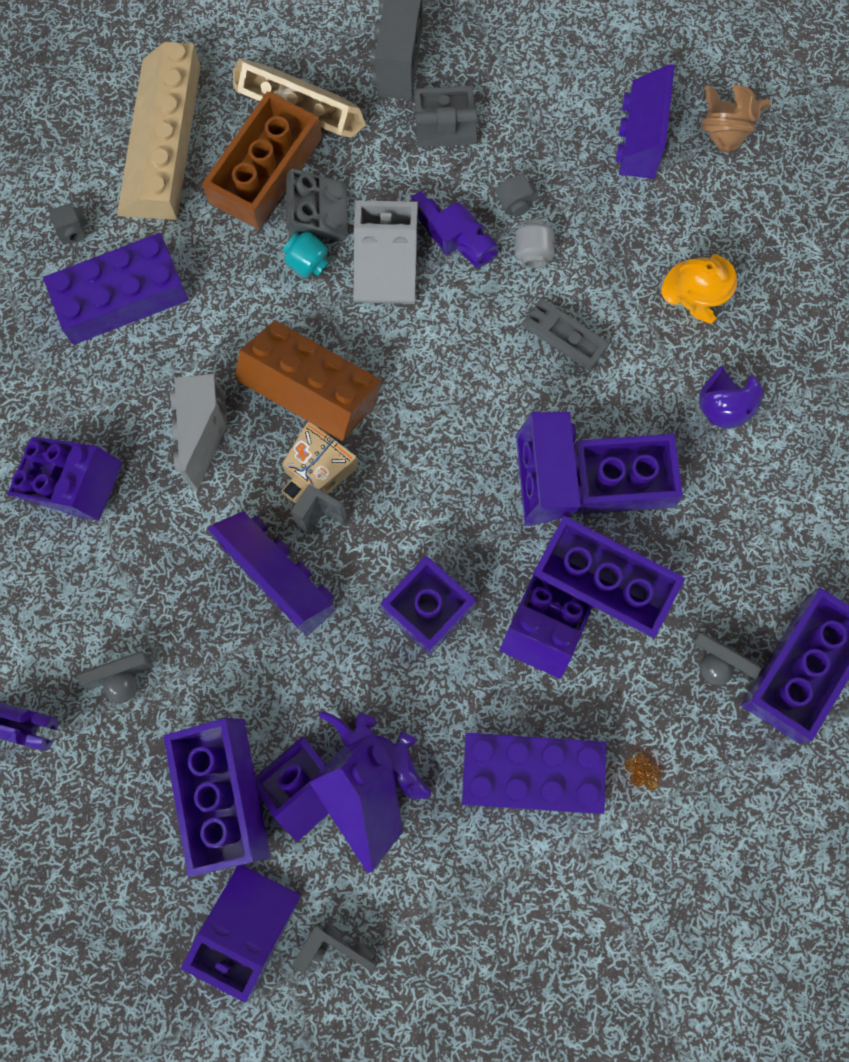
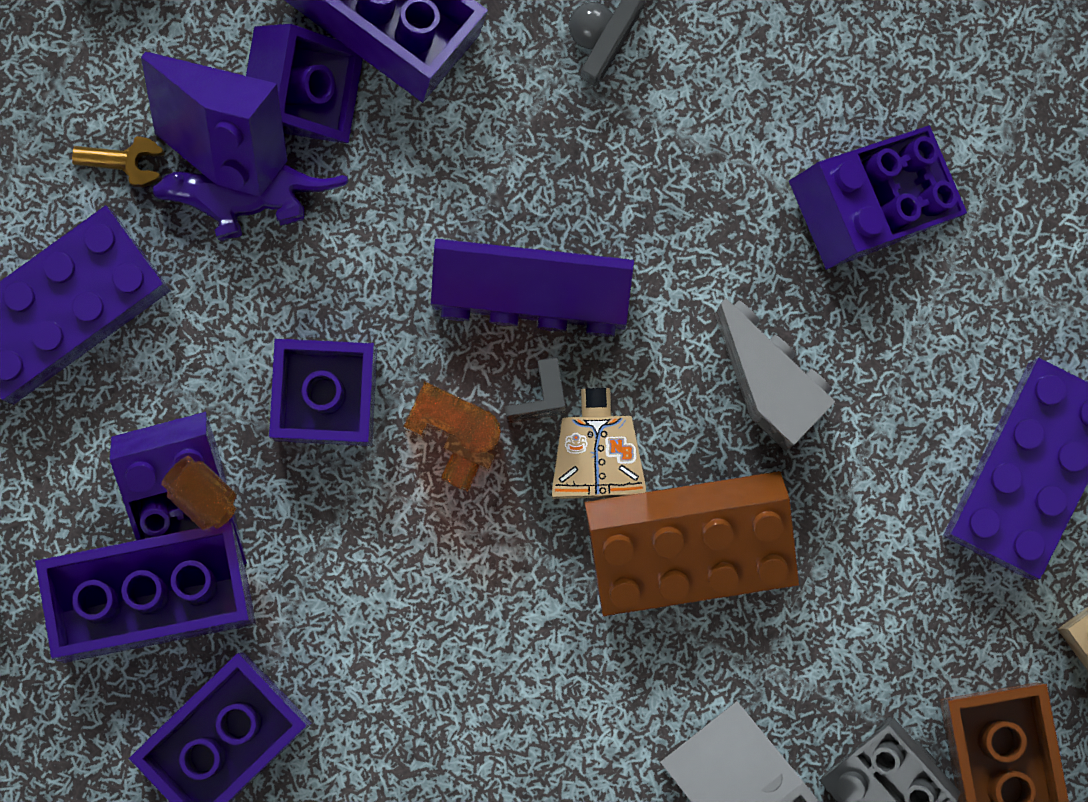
camera: 140 degrees right, 10 degrees up
(306, 254) = (845, 709): teal head -> none
(372, 523) = (469, 429): none -> clear orange hips
(433, 832) = (122, 160): none -> pearl gold bar
(537, 597) = (200, 493): none -> clear orange brick
(548, 467) = (314, 668): dark purple slope -> none

